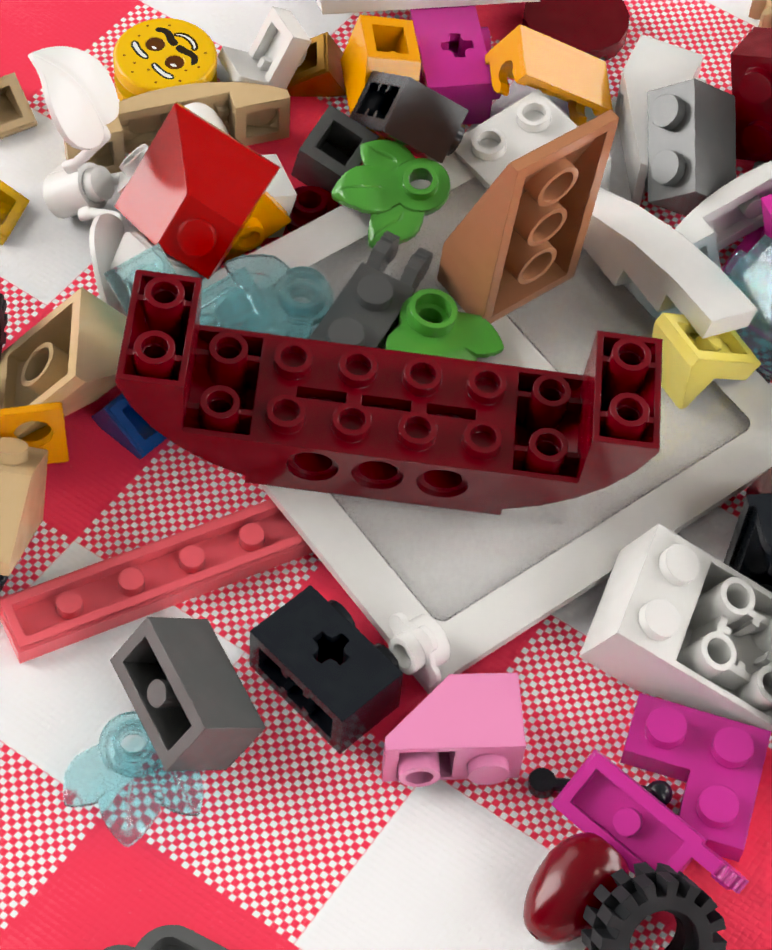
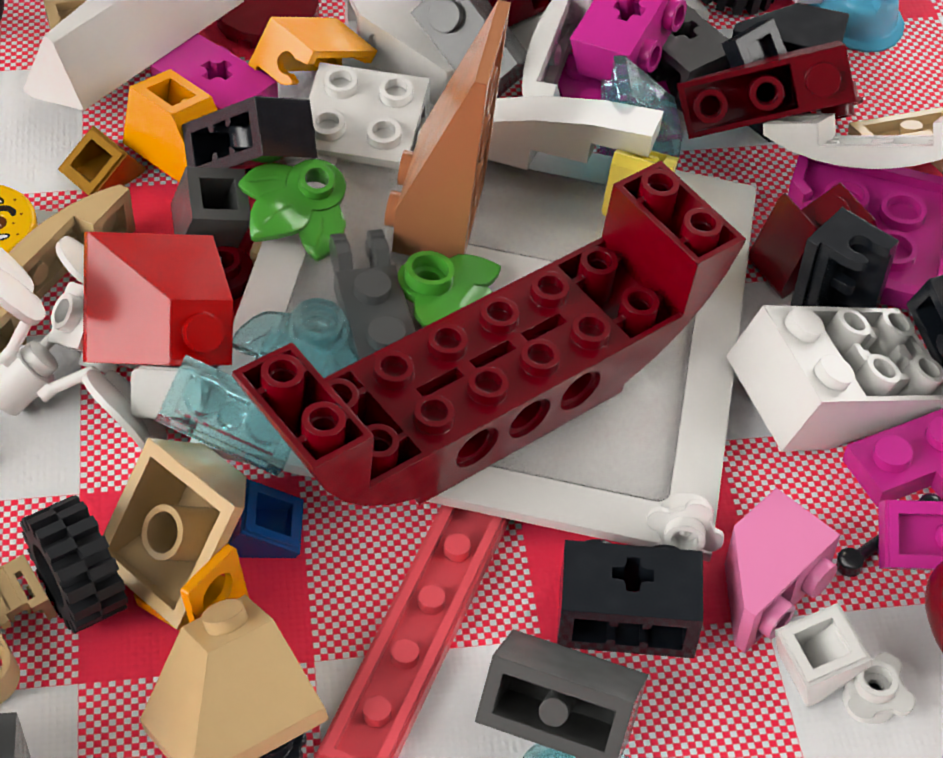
camera: 40 degrees left, 5 degrees down
(273, 55) = (66, 167): white bracket -> none
(417, 820) = (821, 653): none -> white slope
(433, 901) = (874, 705): none -> white plate

